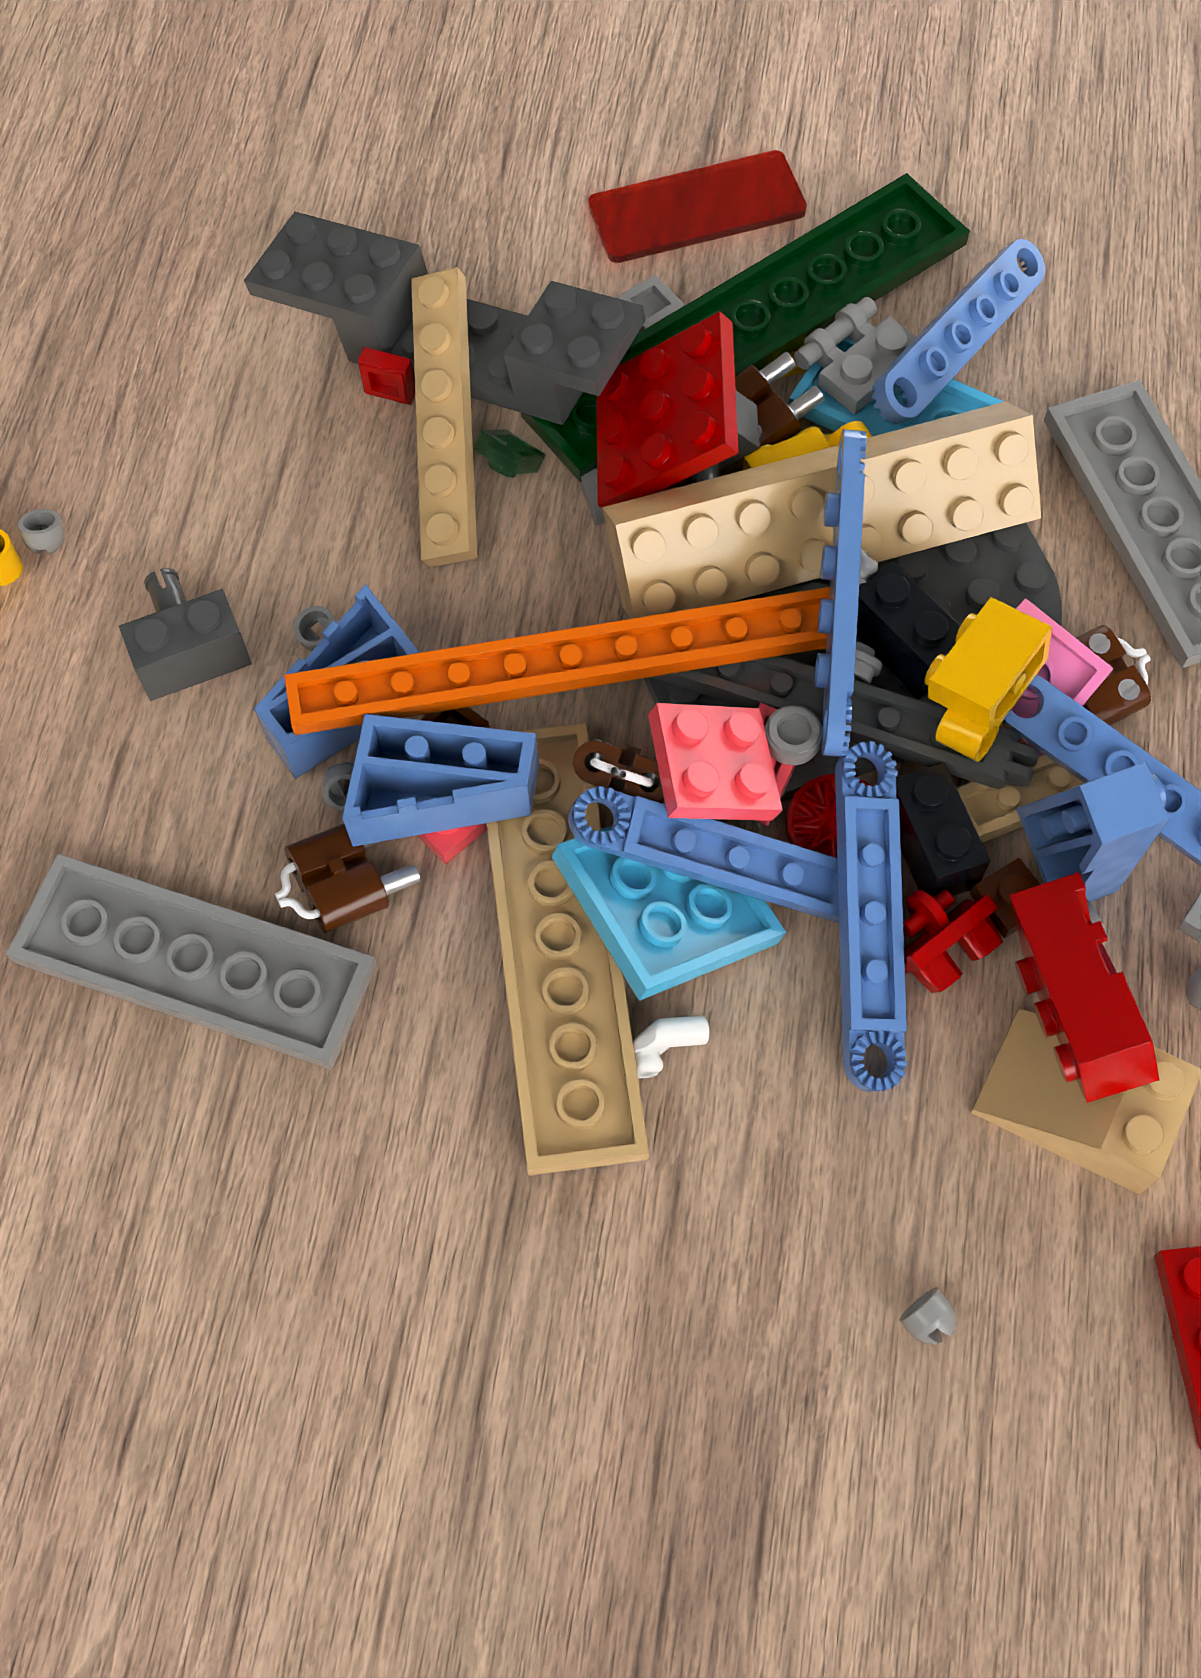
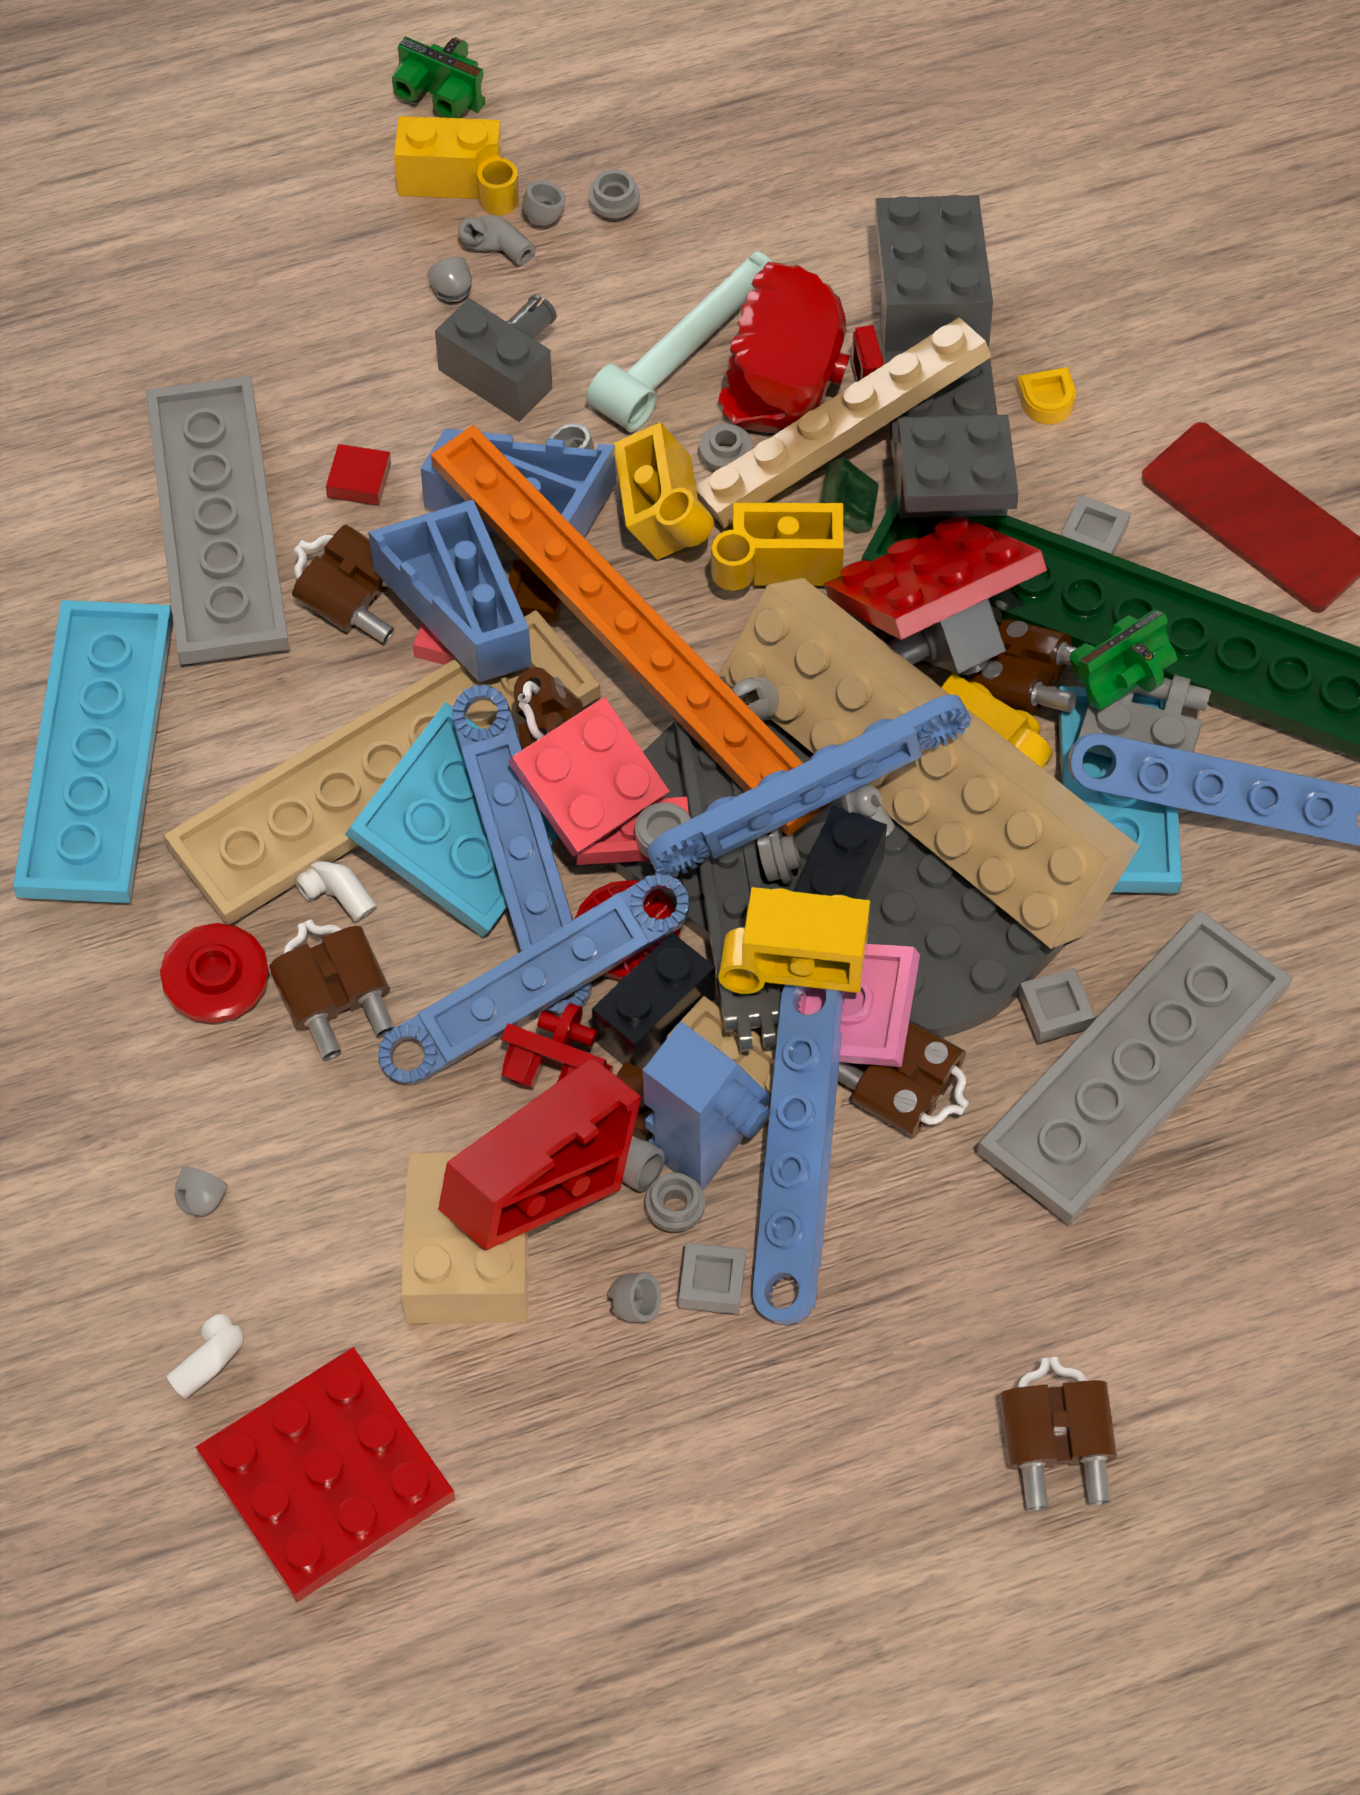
camera: 60 degrees right, 5 degrees down
(45, 583) = (496, 234): none -> light grey arm
(67, 466) = (614, 194): none -> light grey plate
(68, 641) = (450, 279): none -> light grey hinge
(223, 816) = (358, 474): none -> red tile
(290, 562) = (630, 394): none -> light aqua piece
(344, 424) = (784, 349): none -> red animal
(388, 1194) = (94, 752): none -> medium azure plate
(398, 530) = (723, 434): none -> light grey plate
(427, 580) = (660, 492): none -> yellow hinge
(495, 279) = (1047, 395): none -> yellow tile
(537, 517) = (779, 545): none -> yellow hinge
(686, 595) = (766, 691): none -> light grey hinge
(695, 1194) = (214, 973): none -> red wheel
(764, 1092) = (331, 979): none -> reddish brown piece
(829, 321) = (1126, 660): none -> green hips
(1079, 546) = (1056, 1005): none -> light grey plate
(1117, 1384) = (202, 1365): none -> white arm
(1135, 900) = (675, 1187): none -> light grey plate

